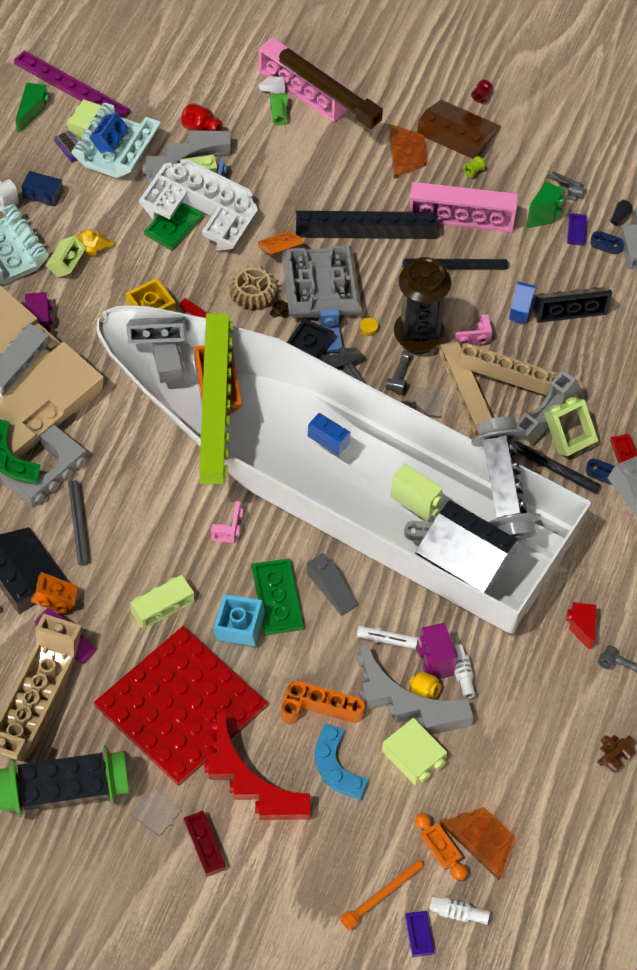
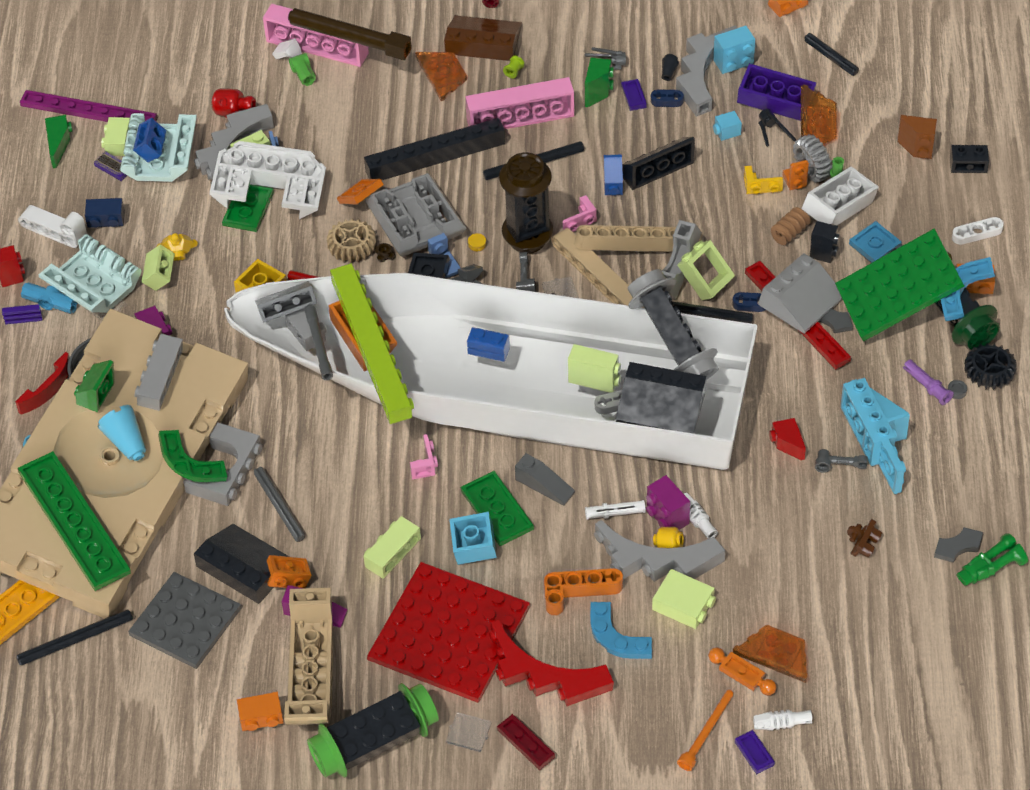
camera: 15 degrees left, 5 degrees down
(173, 357) = (324, 364): none -> dark grey piece

